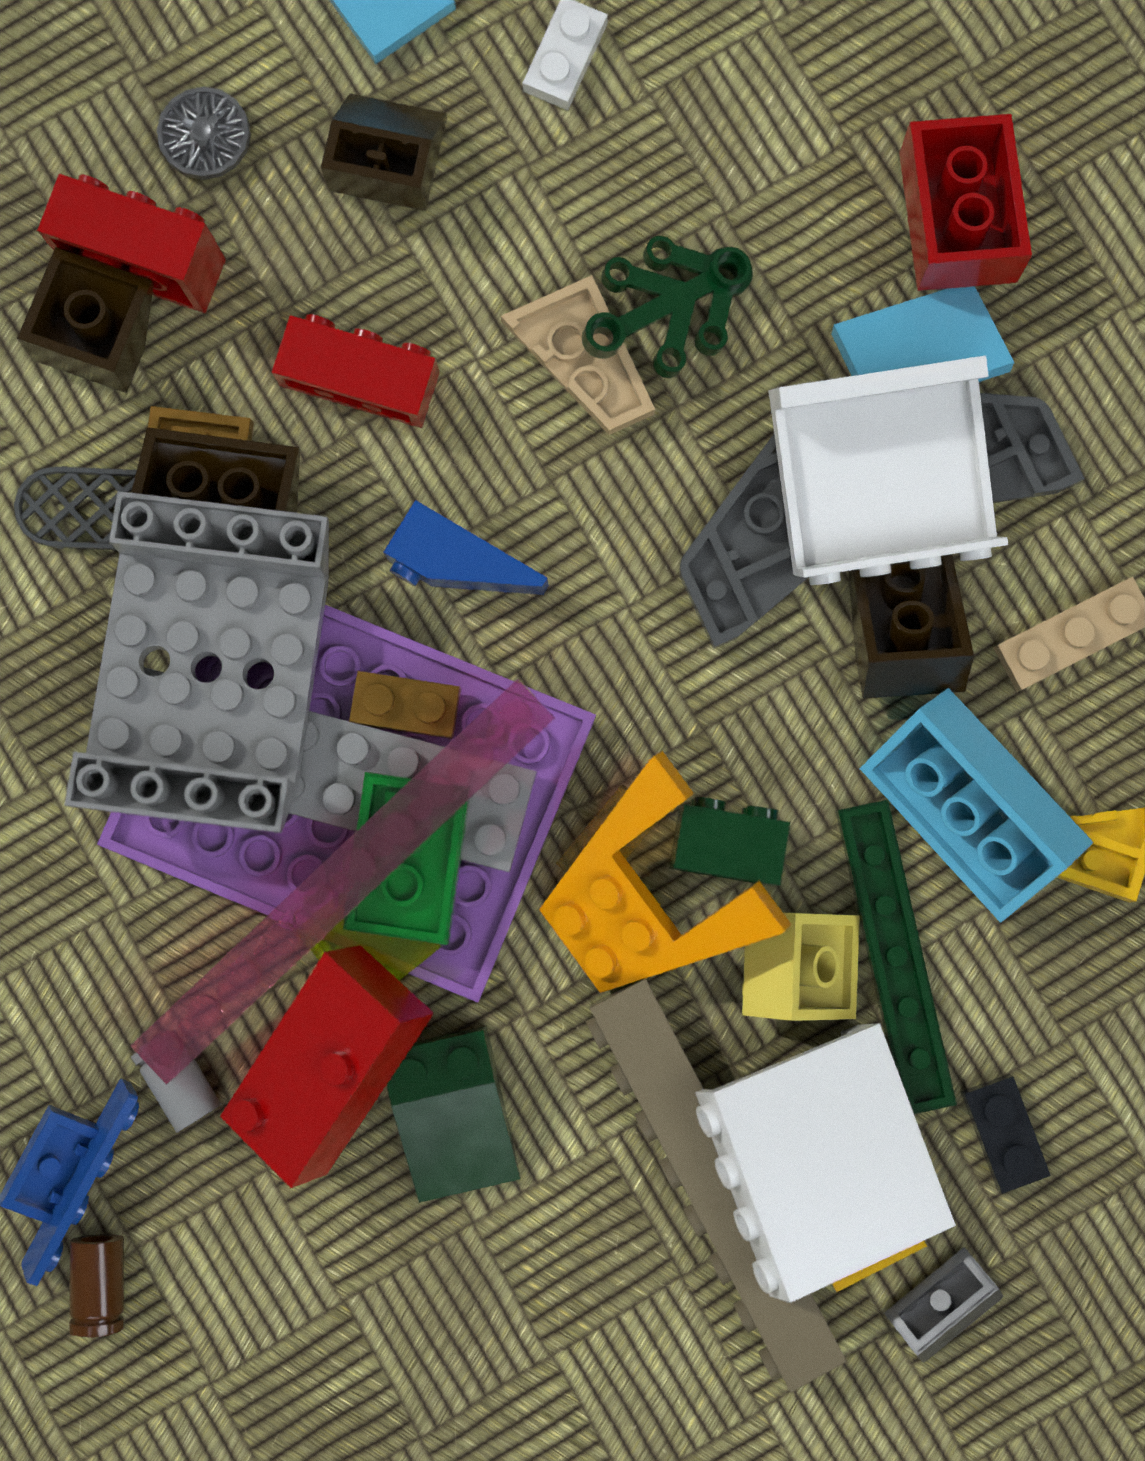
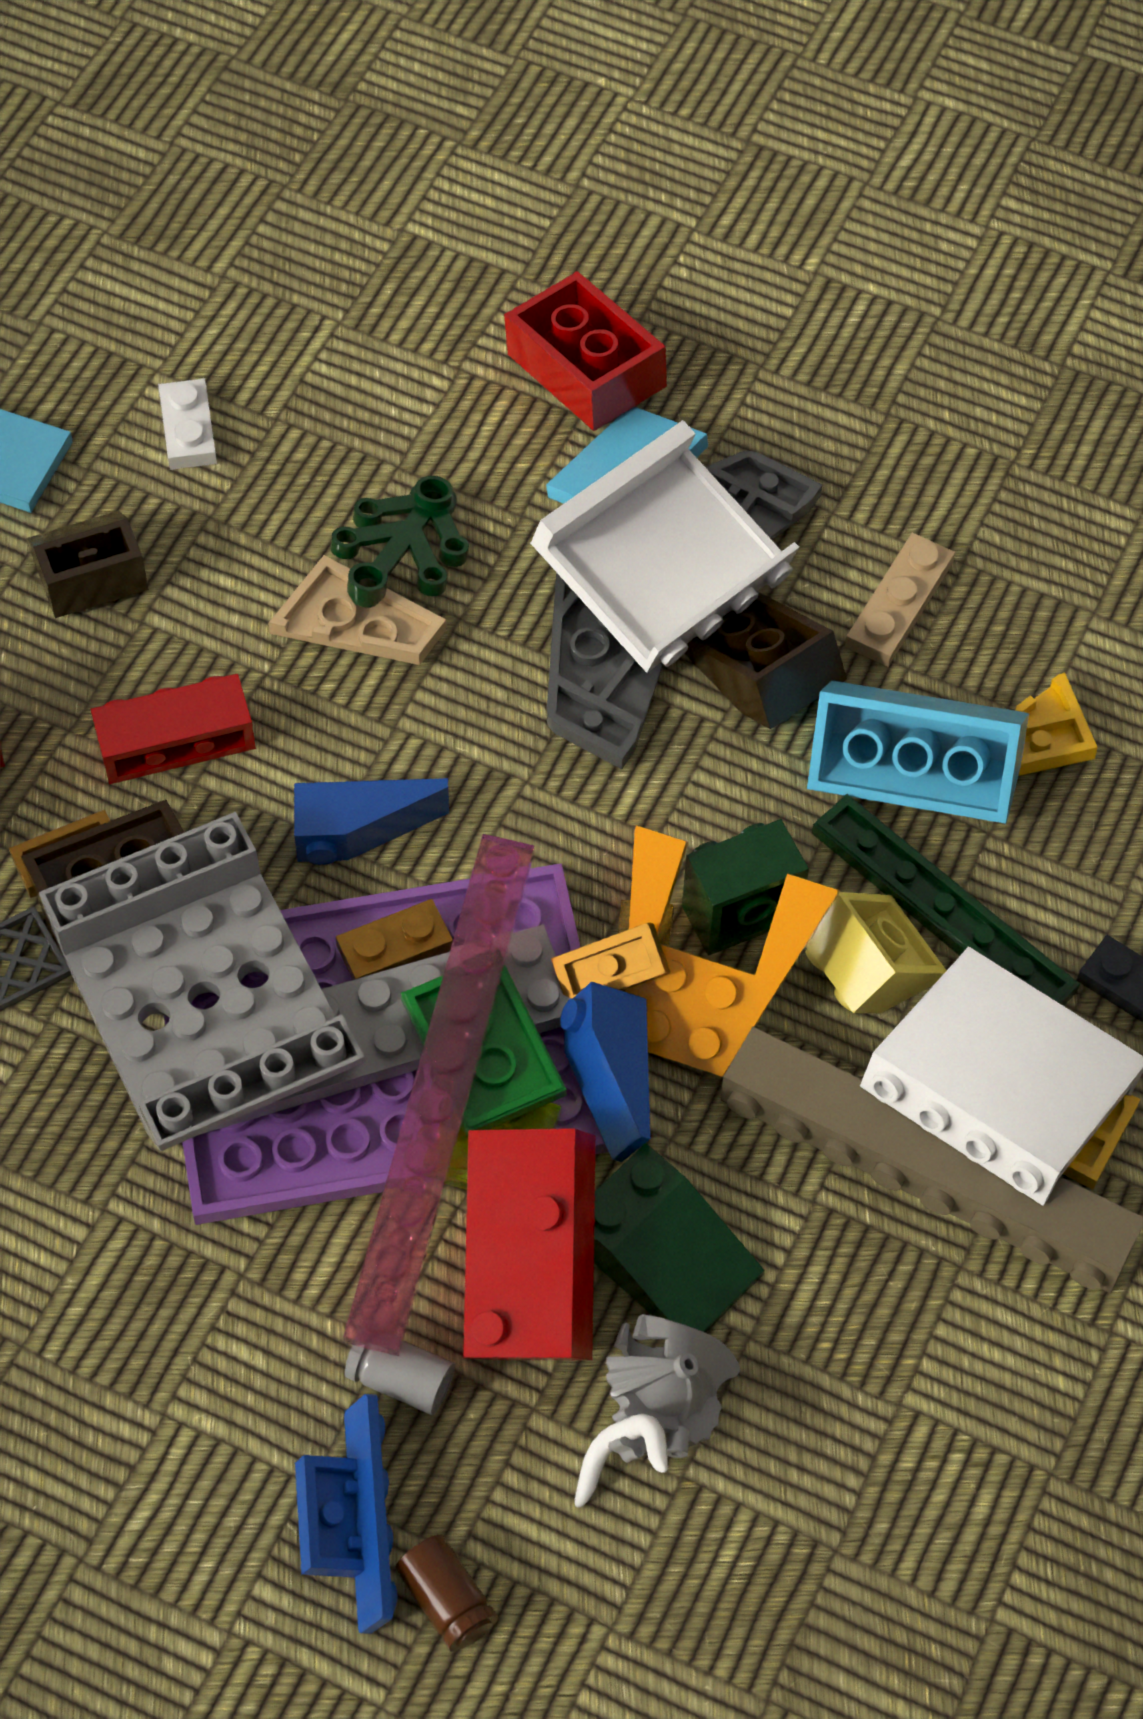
camera: 40 degrees left, 25 degrees down
(357, 1242) = (659, 1395): none -> light grey helmet
(503, 938) = (610, 1061): none -> blue slope
(561, 853) = (613, 961): none -> plate

